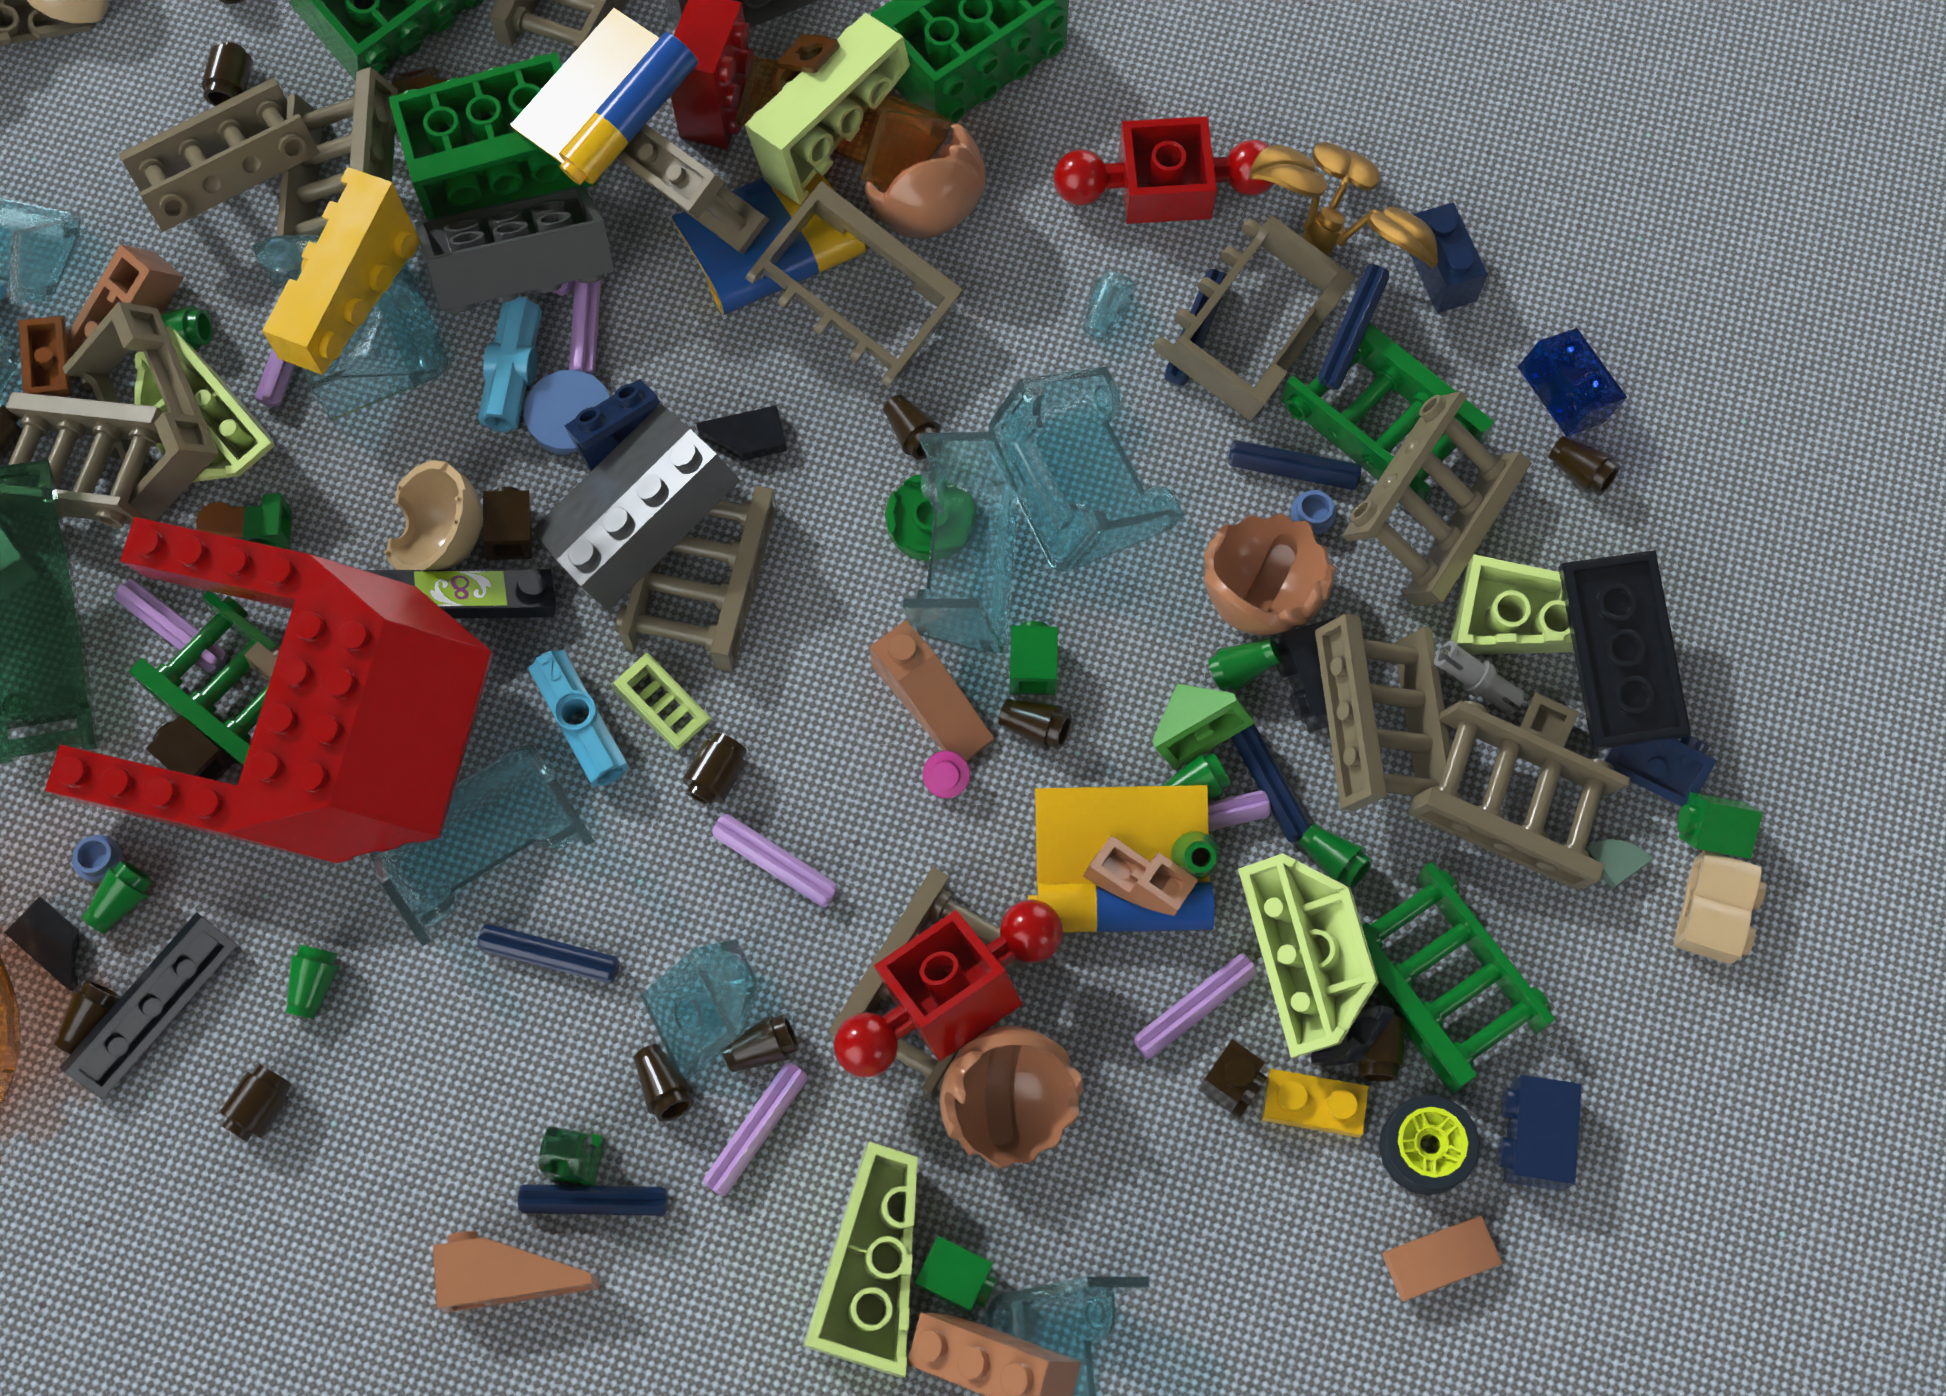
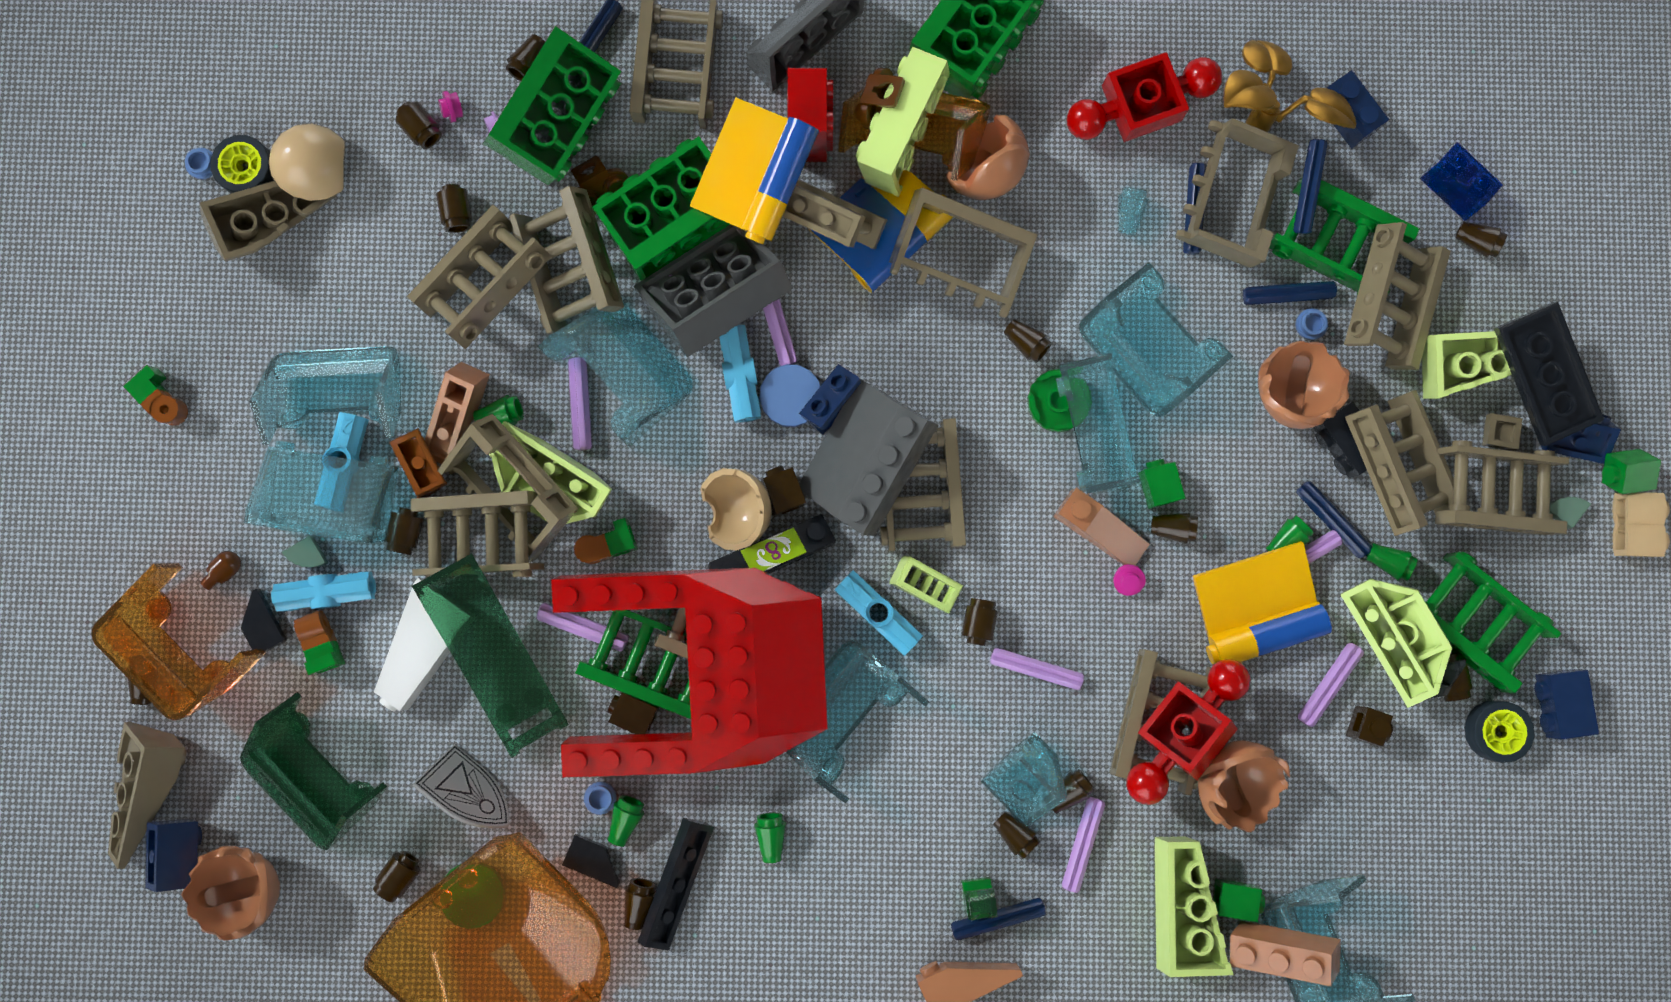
camera: 20 degrees left, 15 degrees up
(255, 1103) = (768, 925): dark brown brick -> none
(342, 273) = (619, 358): yellow wedge -> none
(548, 953) = (914, 773): dark blue axle -> none
(747, 433) = (917, 376): black tile -> none
(1152, 884) = (1280, 620): nougat slope -> none
(1184, 848) = (1311, 592): green cone -> none
(1198, 722) = (1281, 498): bright green slope -> none
(1242, 663) = (1297, 449): green cone -> none
(1315, 1103) = (1422, 724): yellow plate -> none
(1441, 1258) = (1524, 800): nougat slope -> none
(1479, 677) = (1454, 414): light grey pin -> none

